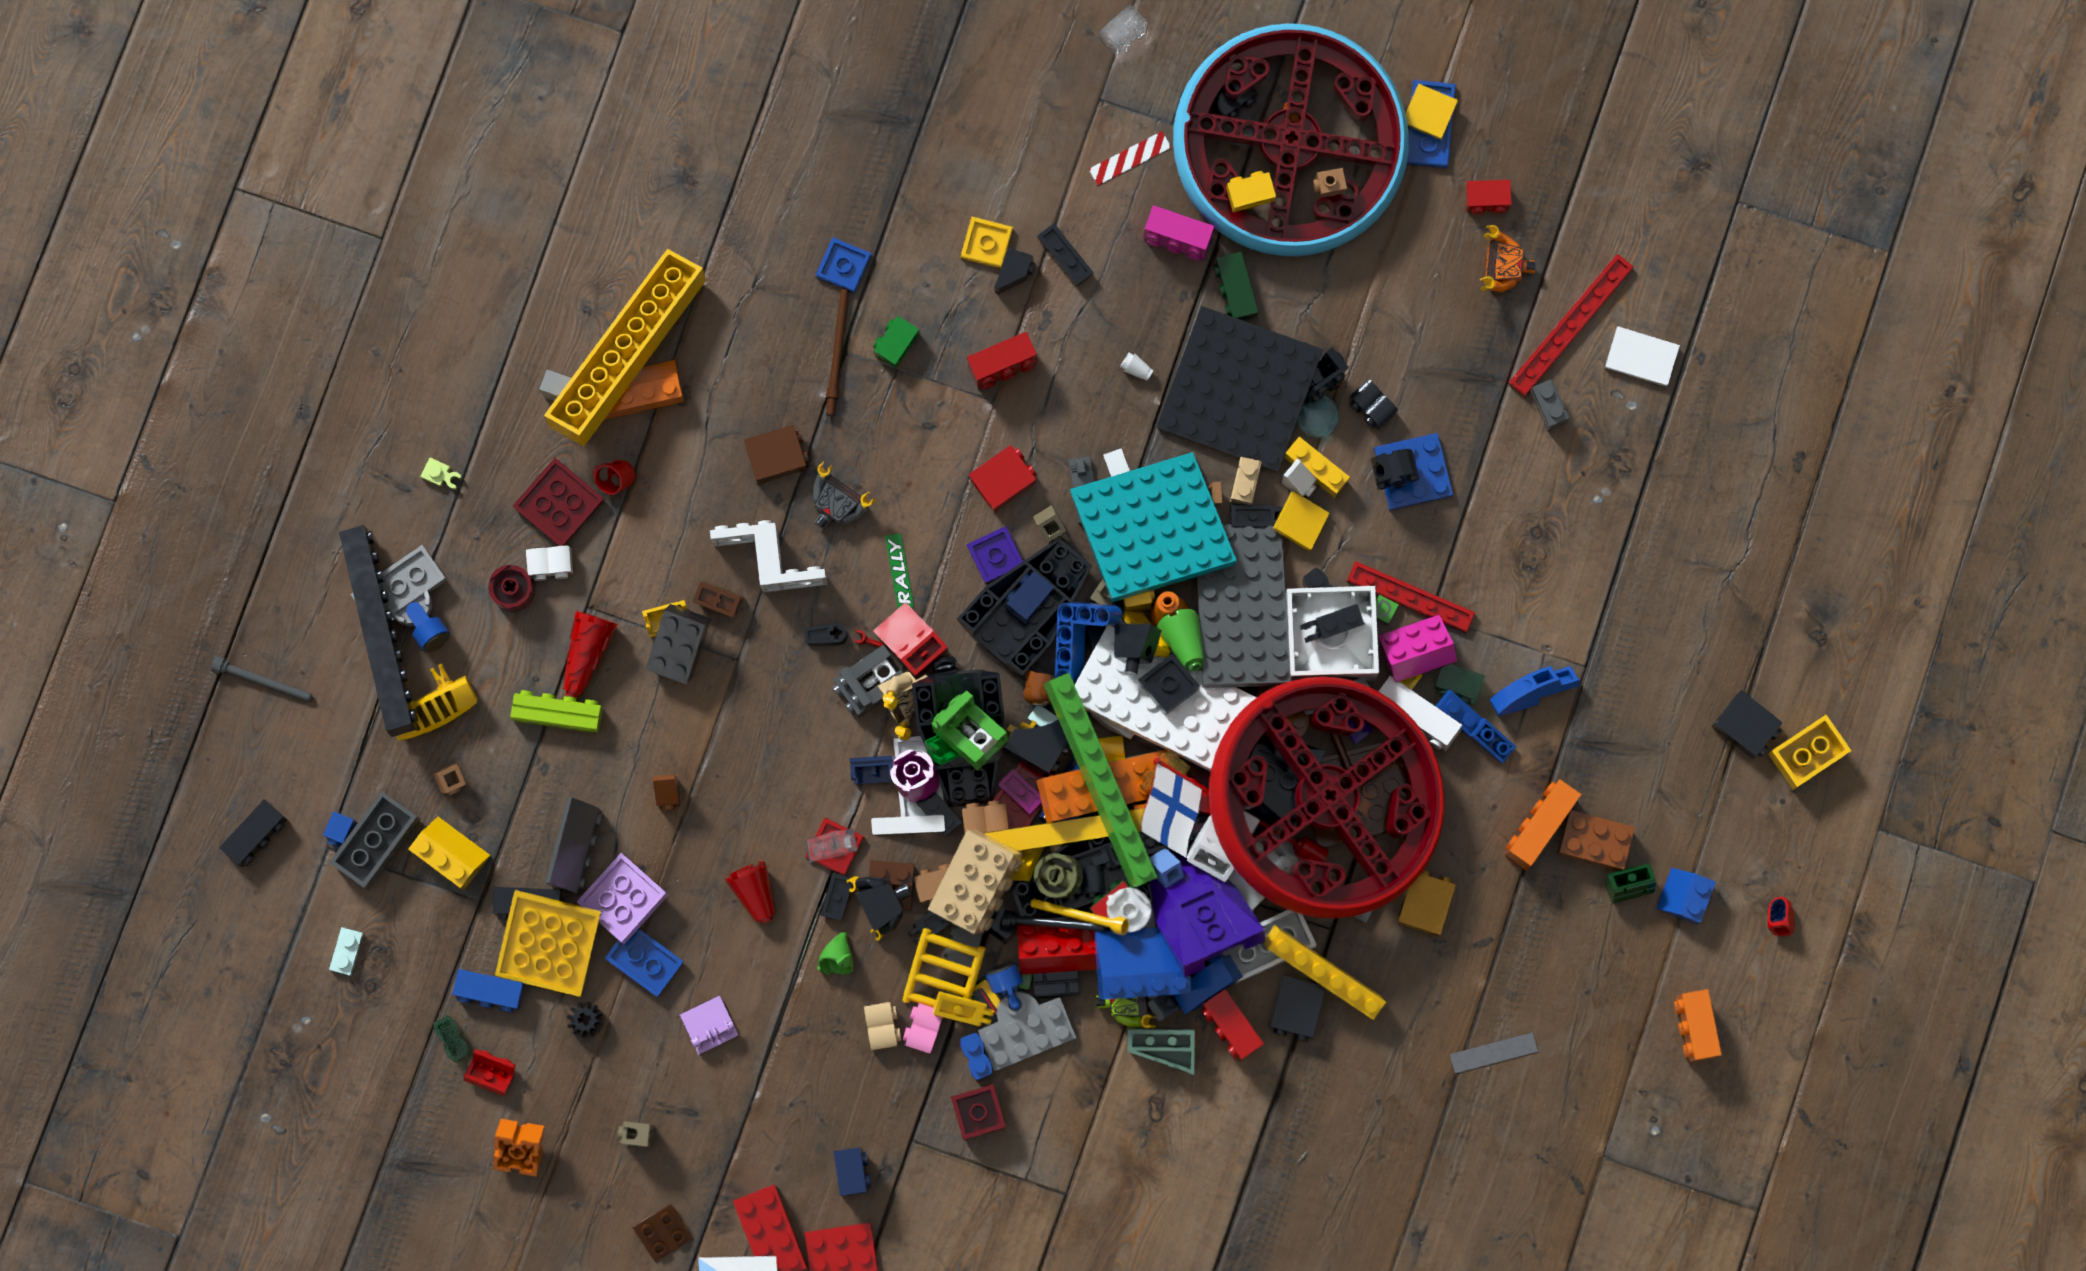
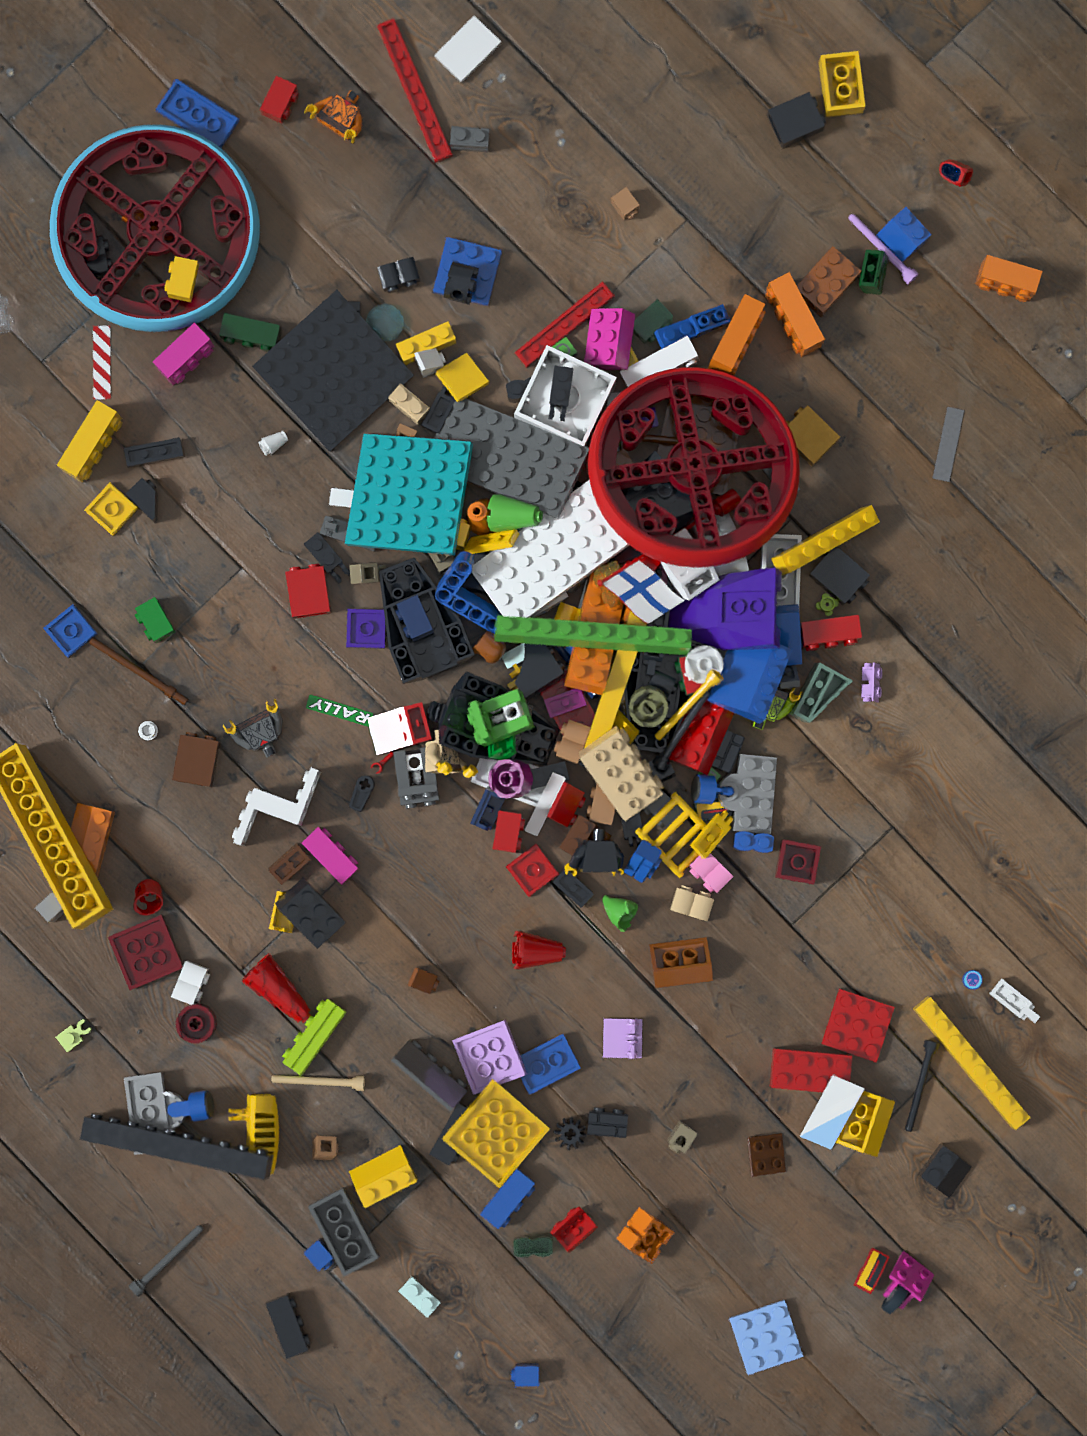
camera: 65 degrees left, 5 degrees up
(319, 1098) = (525, 1374): none -> blue brick
(531, 780) = (356, 1082): none -> tan piece
(614, 1053) = (607, 1123): none -> black brick
(748, 636) = (331, 855): none -> dark pink brick
(782, 392) = (148, 730): none -> white plate
(815, 1045) = (681, 962): none -> dark orange slope
(831, 845) = (531, 872): clear slope -> none
(851, 1171) = (794, 983): dark blue brick -> none
(860, 801) = (507, 832): none -> red brick
(898, 953) = (643, 861): none -> blue brick
(917, 846) = (566, 804): none -> red slope
(1002, 361) = (215, 544): red brick -> none
(1042, 186) = (90, 441): none -> yellow brick
(1048, 478) = (325, 555): none -> black hinge
(1135, 645) = (499, 553): black torso -> none
(1166, 867) = (685, 618): medium blue brick -> none
(1169, 684) = (543, 543): black plate -> none
(1213, 1094) = (873, 675): none -> lavender hinge
(1256, 1014) = (827, 599): none -> lime plate
(1330, 183) = (208, 213): medium nougat brick -> none
(1333, 369) = (356, 290): black bracket -> none
(1430, 111) = (188, 109): yellow tile -> none
(1487, 776) = (738, 335): none -> orange brick
(1528, 689) = (684, 267): blue slope -> none
(1566, 595) = (625, 204): none -> medium nougat brick
(1649, 922) = (907, 273): none -> lavender piece

